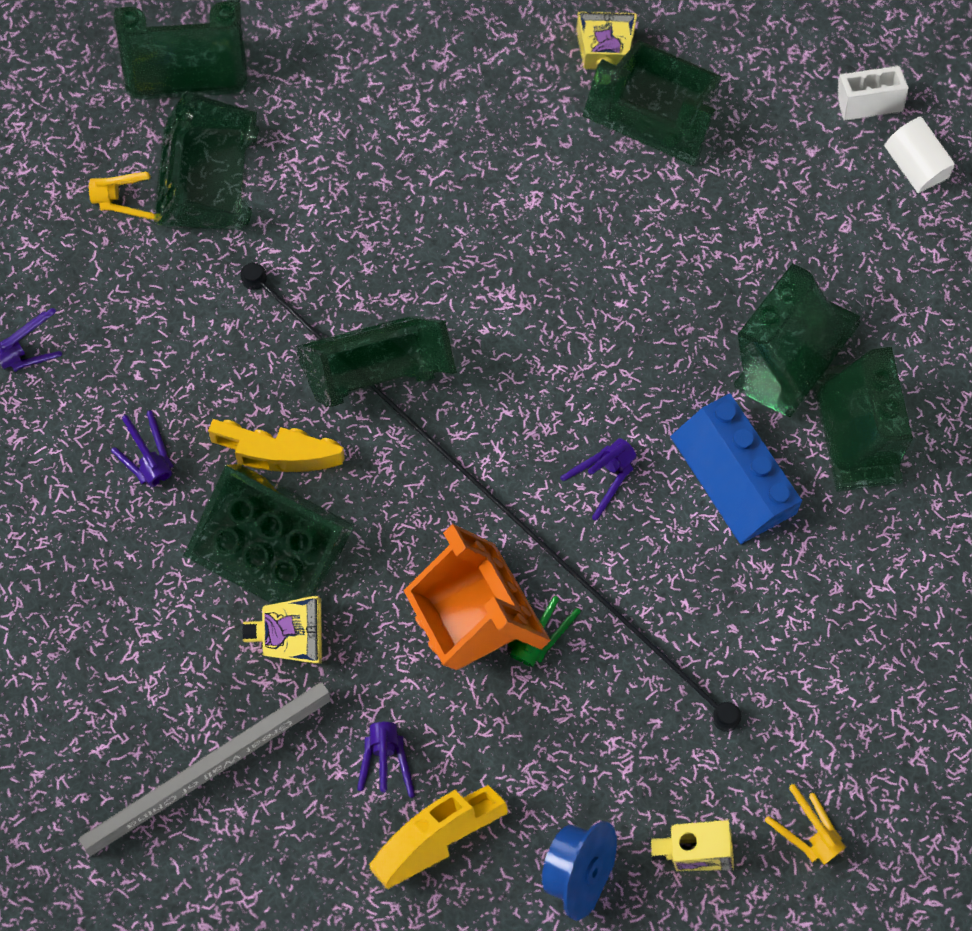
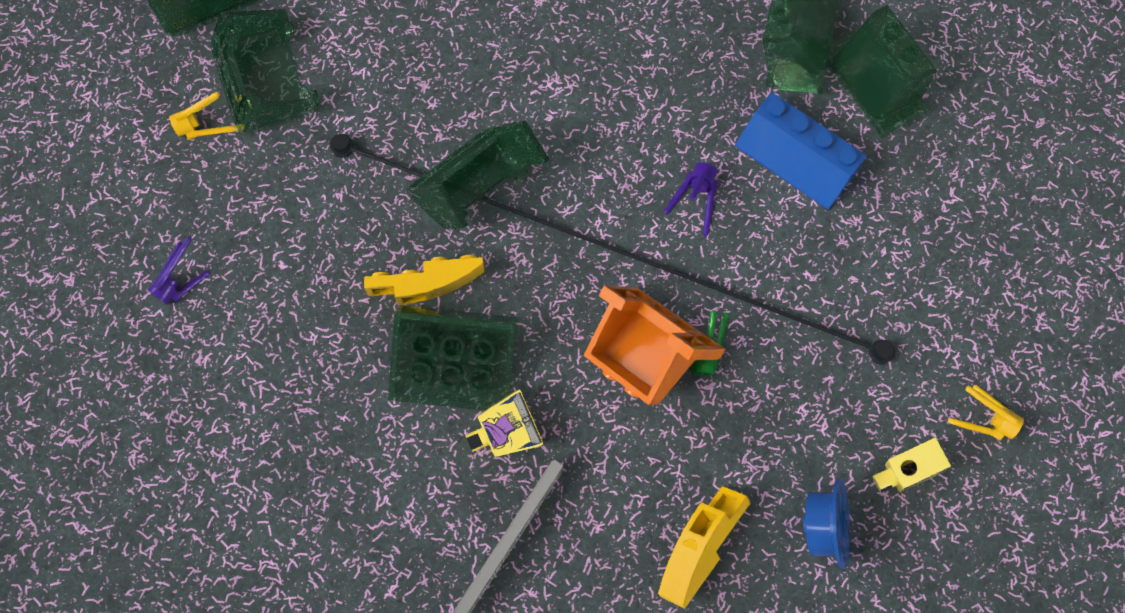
camera: 20 degrees left, 5 degrees up
(152, 466) = (329, 335): dark purple plant -> none
(383, 743) = (623, 485): dark purple plant -> none

